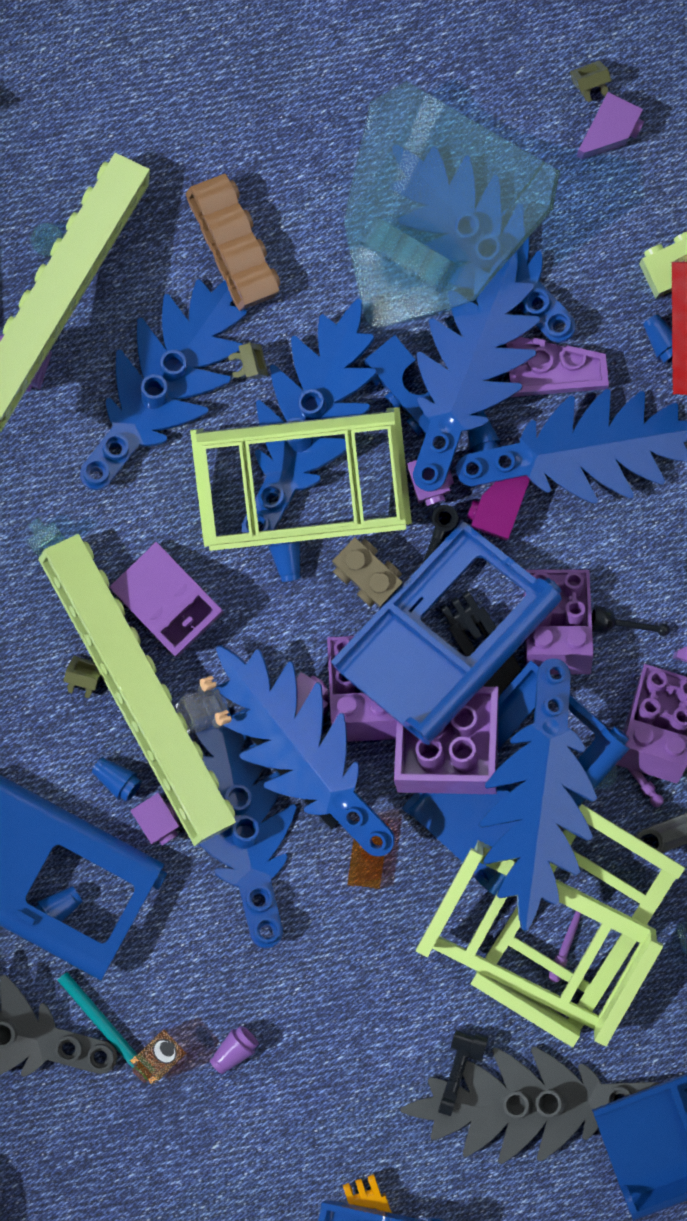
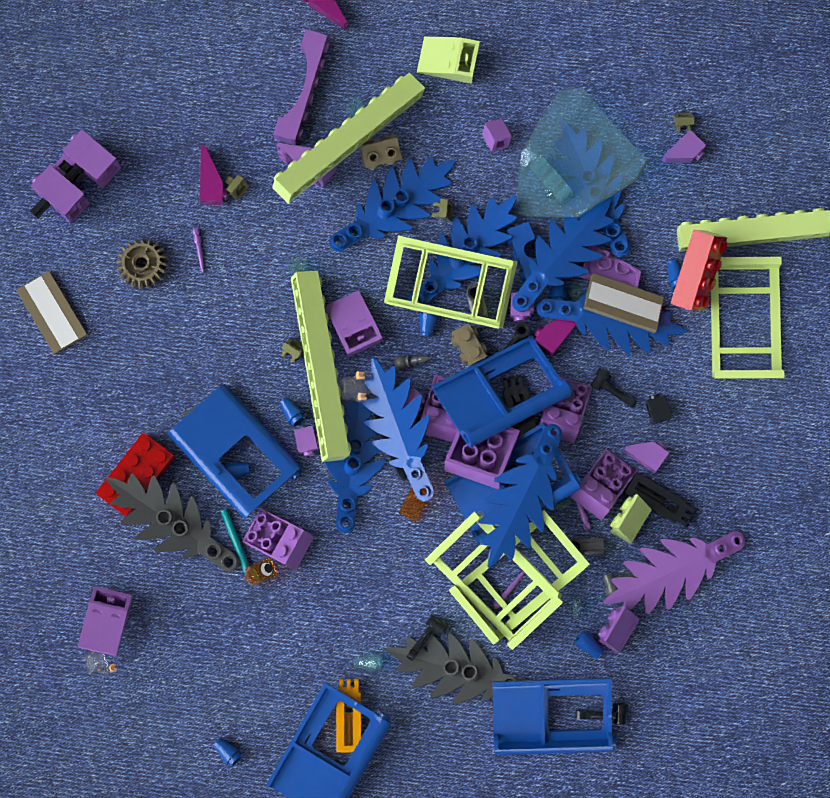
camera: 15 degrees right, 5 degrees down
(113, 300) = (377, 152): none -> dark tan brick
(166, 993) = (278, 539): none -> medium lavender slope
(171, 105) = (449, 58): none -> yellowish green slope
(231, 240) = (456, 142): medium nougat brick -> none
(234, 1049) = (304, 583): medium lavender cone -> none
(268, 635) = (402, 362): none -> dark grey bar
(294, 207) = (496, 135): none -> medium lavender brick
(370, 508) = (482, 311): none -> dark grey piece
(381, 1141) = (369, 662): none -> clear light blue cone
(501, 426) = (570, 290): none -> clear light blue plant
(595, 417) = (623, 302): none -> tile
(601, 556) = (601, 381): none -> black brick
(604, 620) = (591, 417): black hinge -> none

